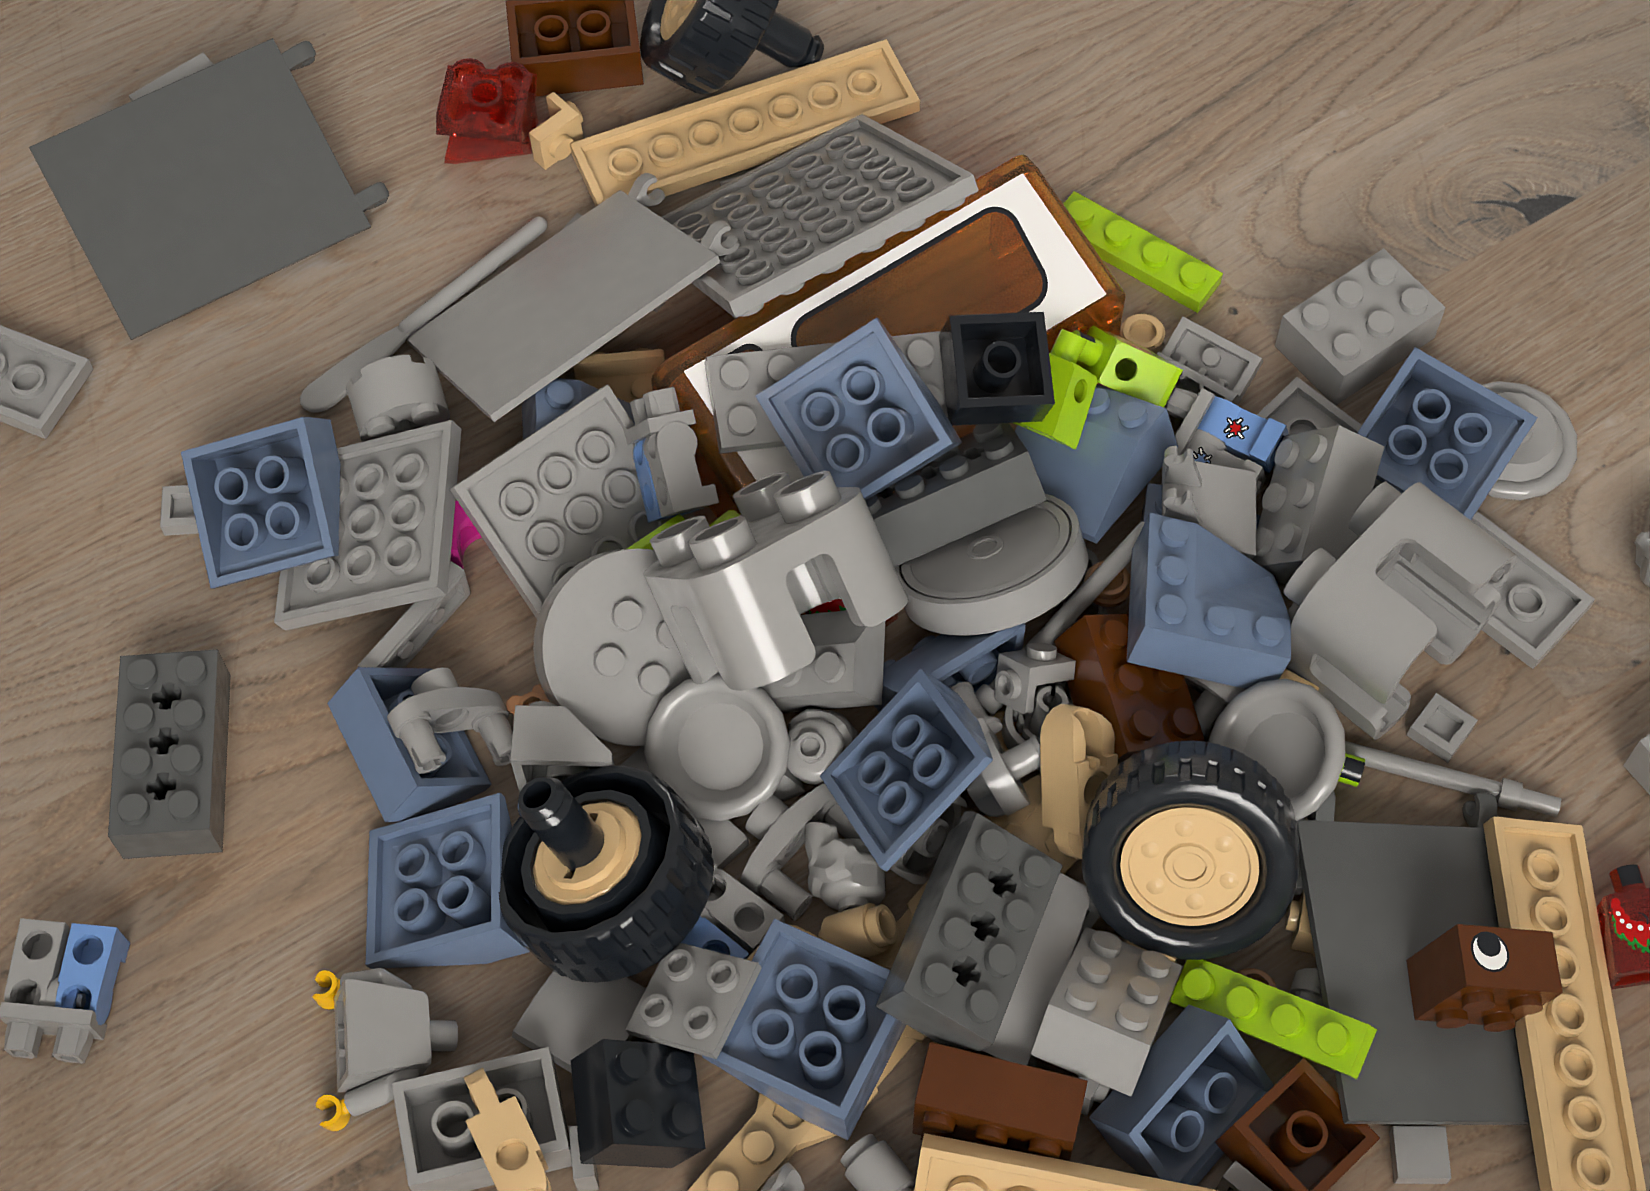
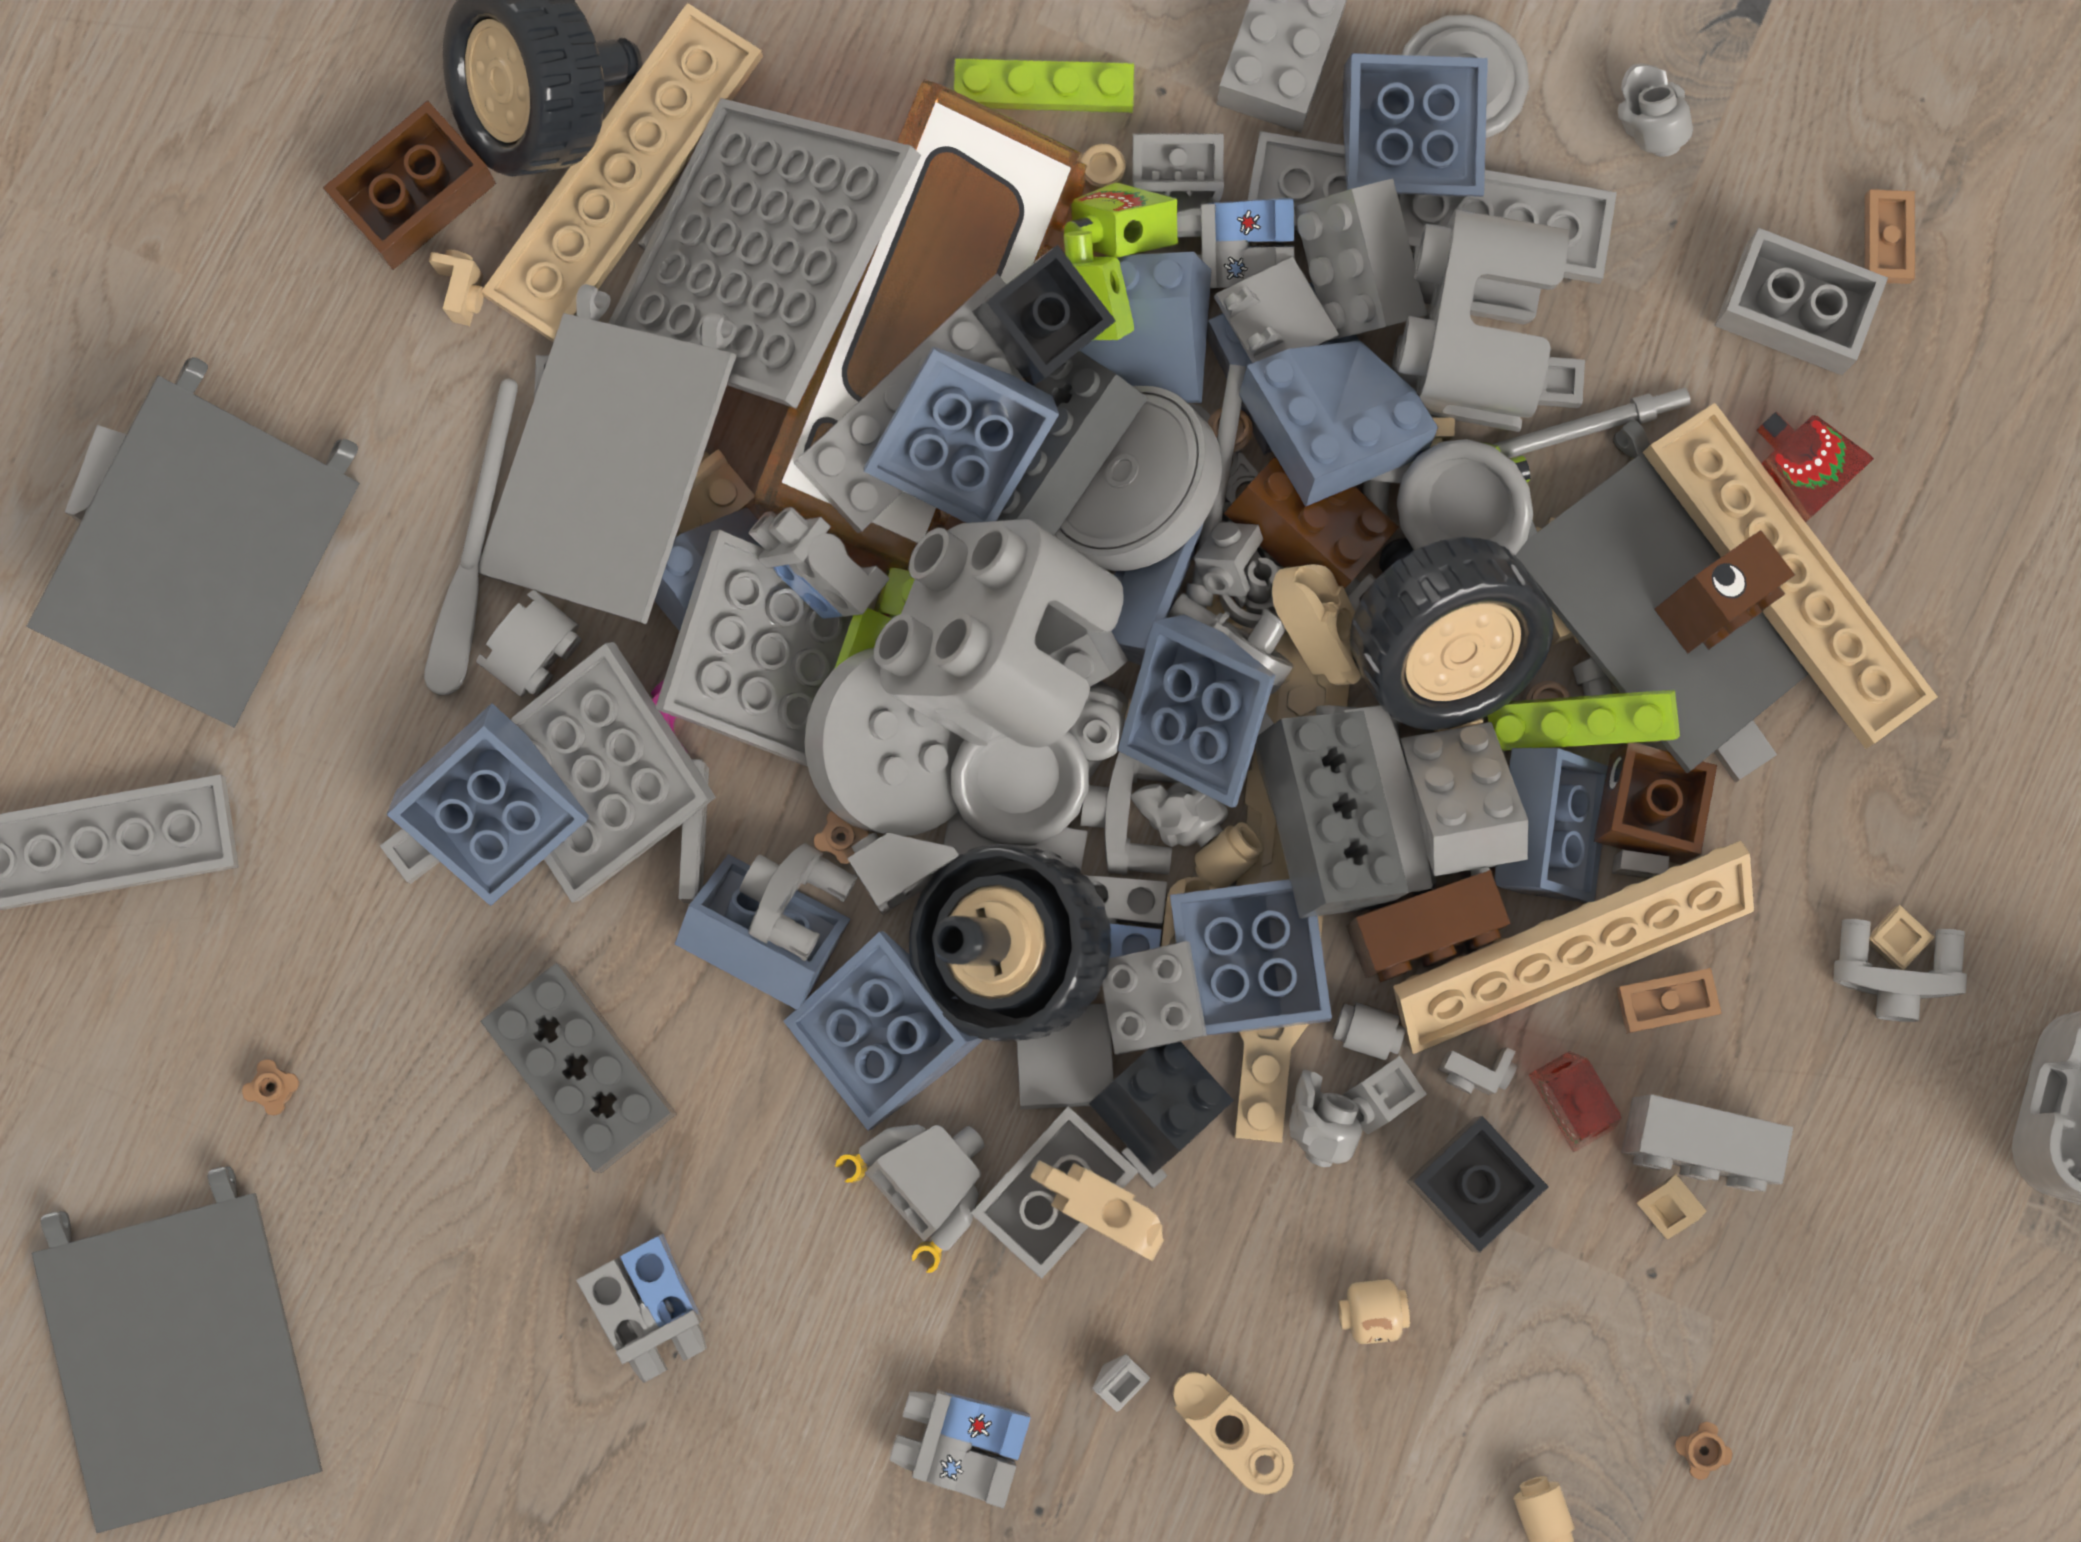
camera: 35 degrees left, 20 degrees up
(486, 111) = (385, 308): clear red piece -> none

